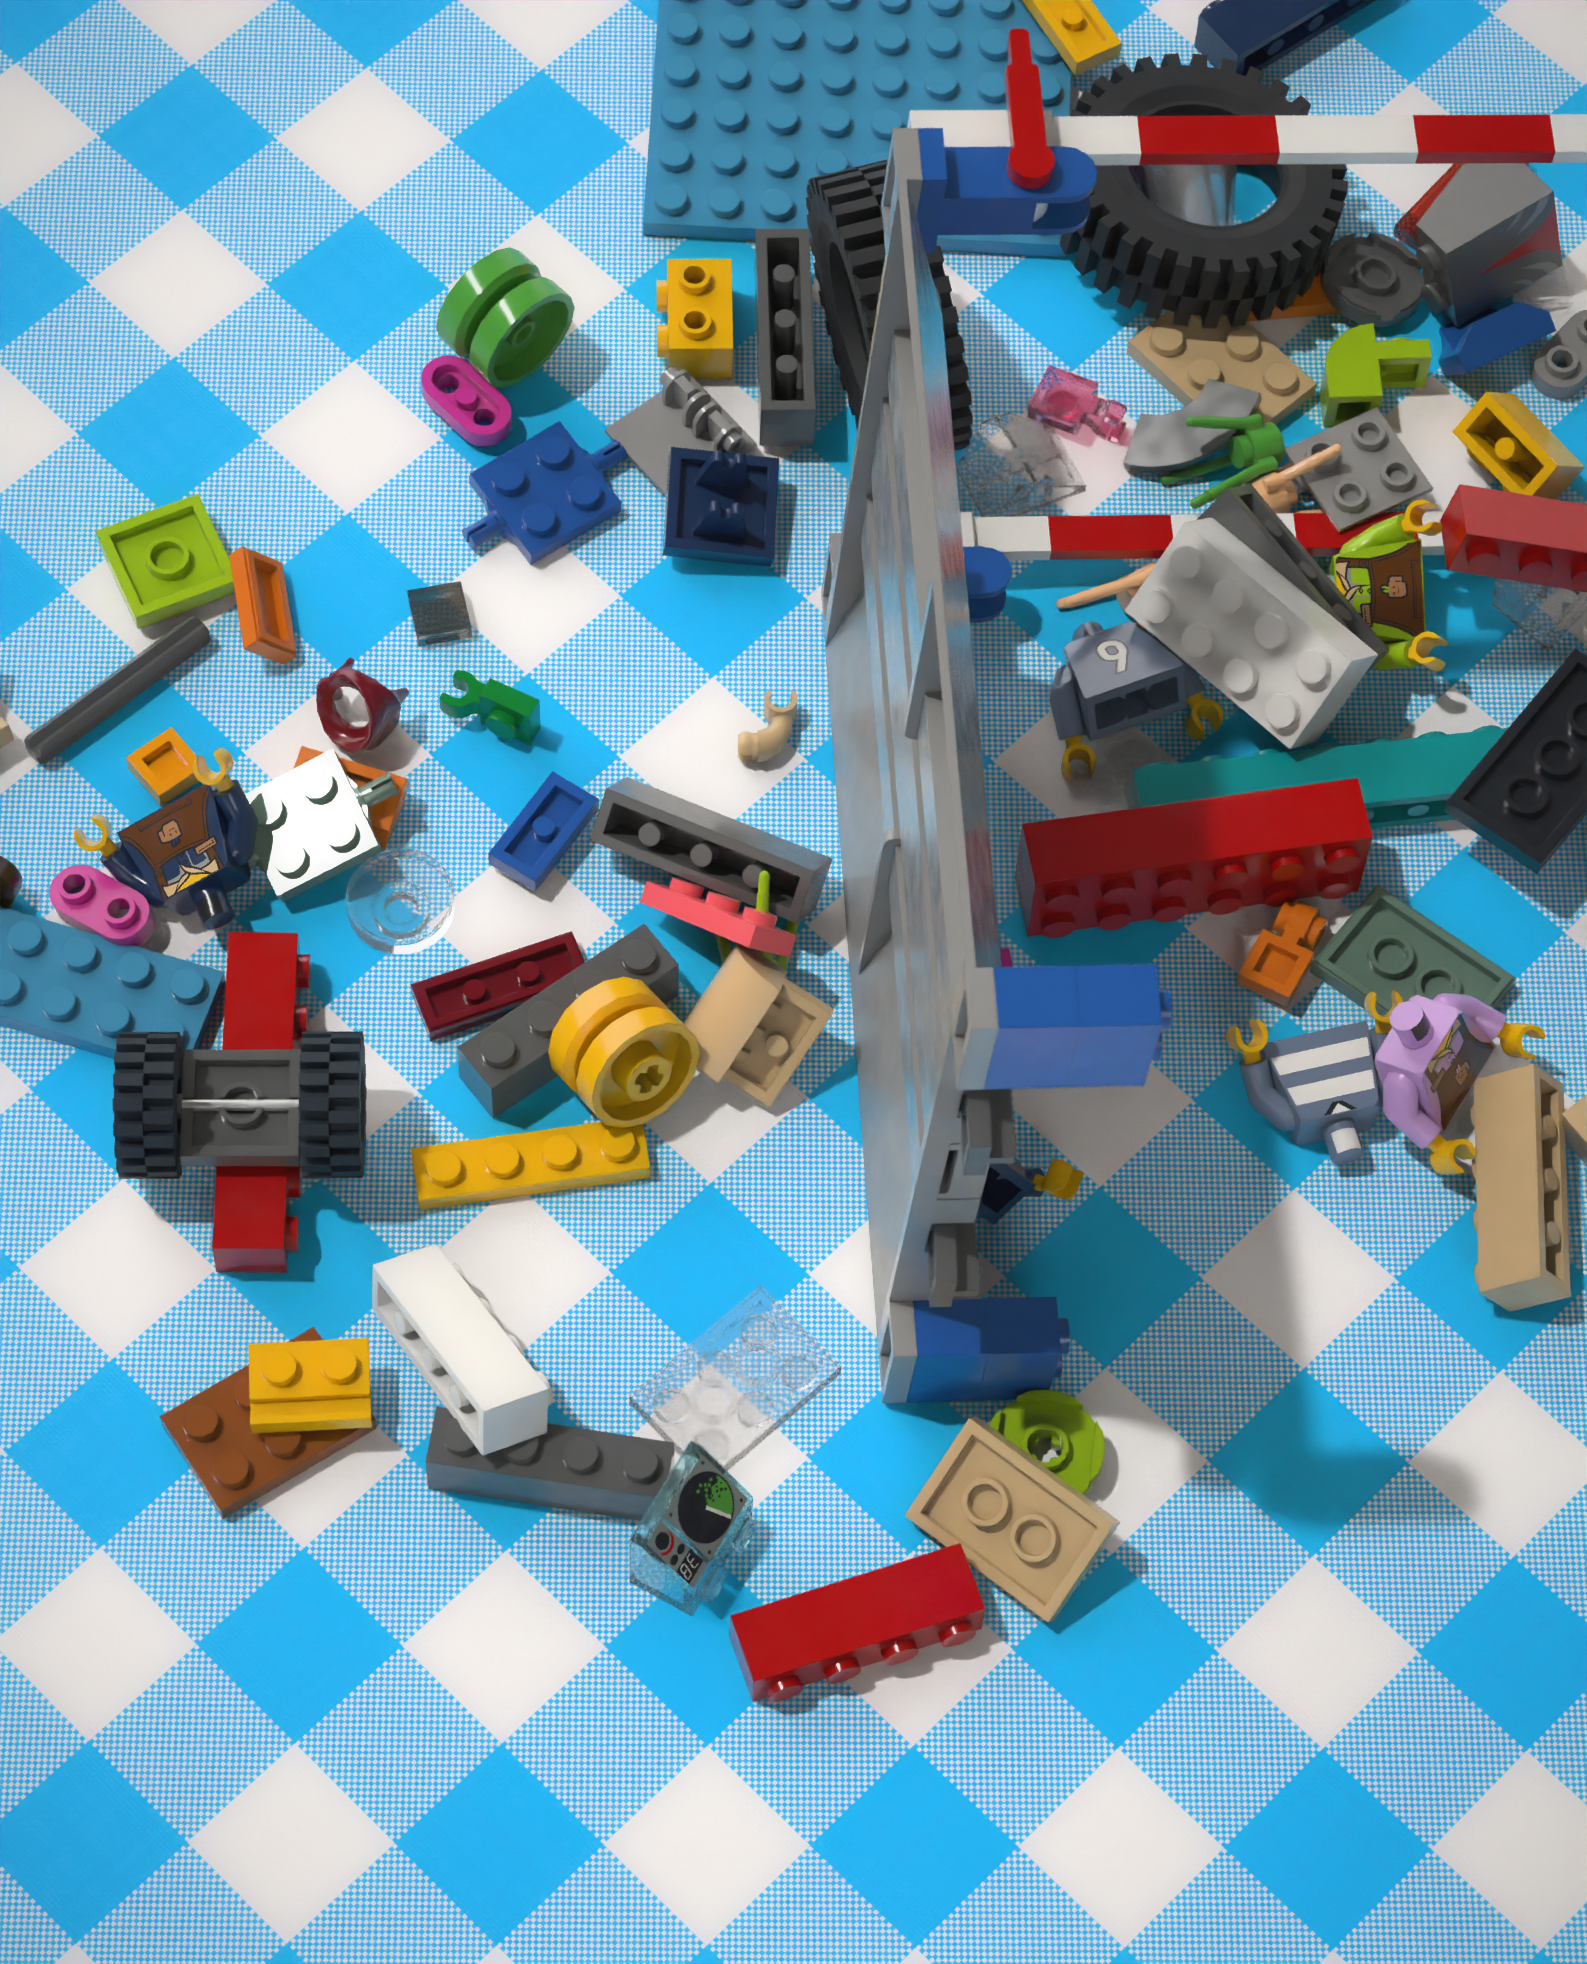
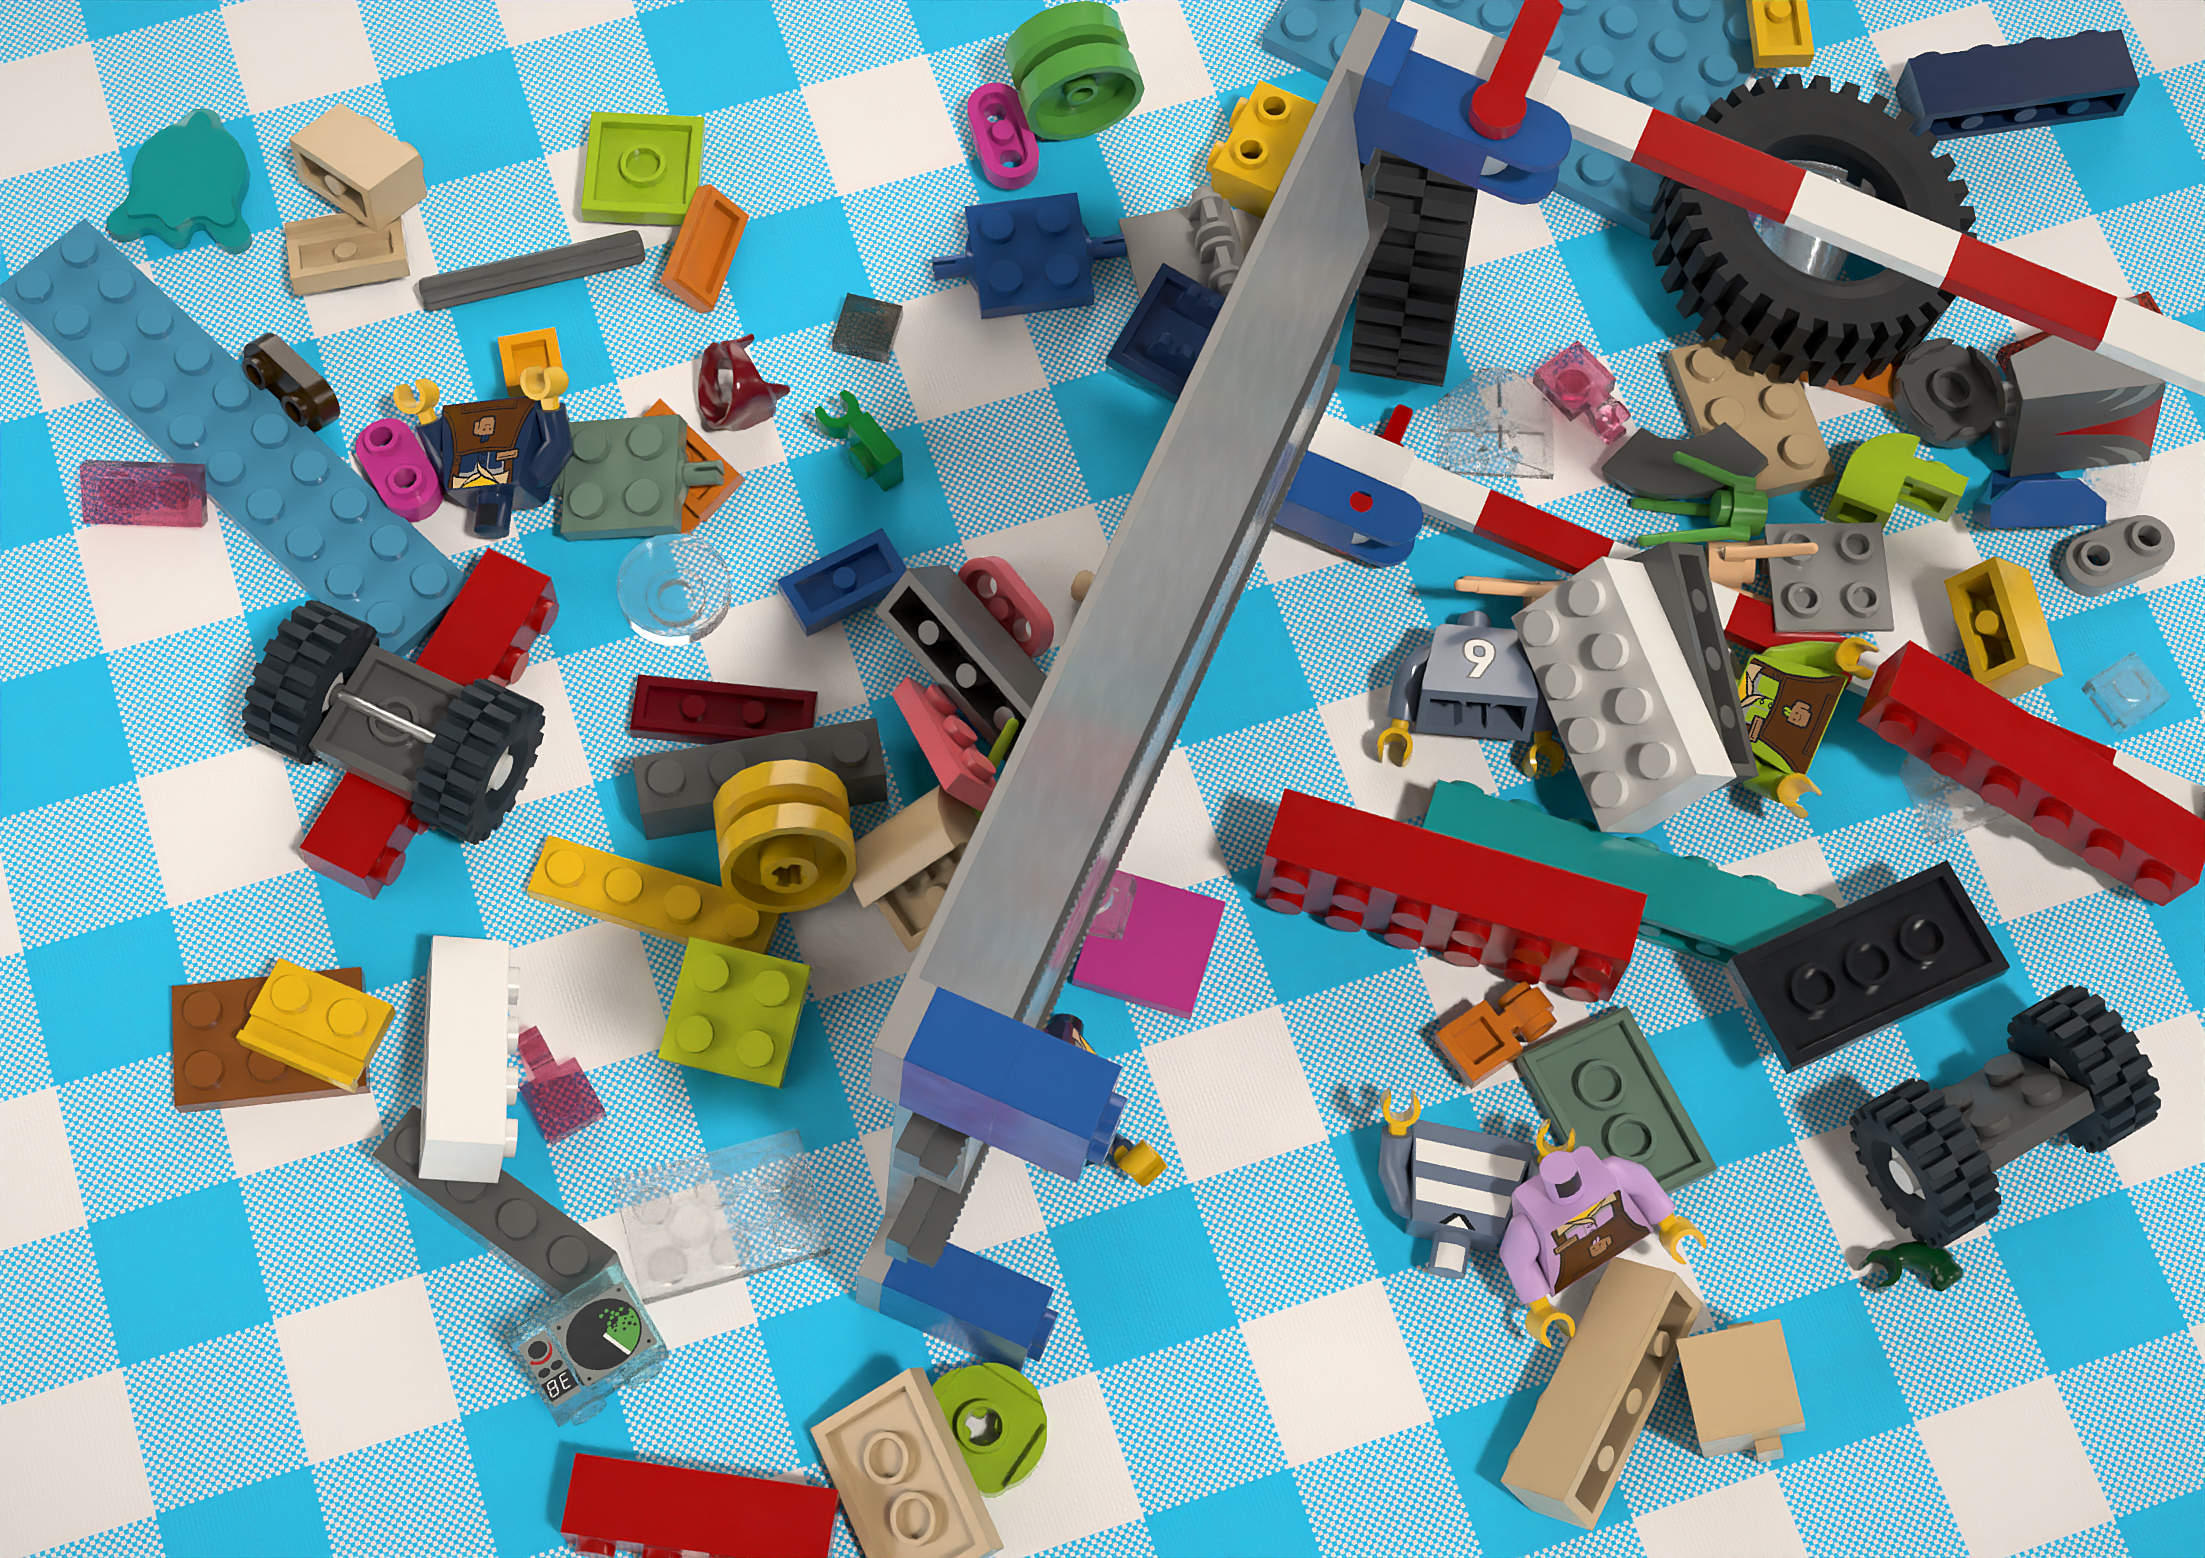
camera: 25 degrees right, 5 degrees up
(545, 1347) = (559, 1094): none -> clear pink plate
(653, 1219) = (735, 1012): none -> neon yellow plate
(696, 783) = (1011, 604): none -> coral plate

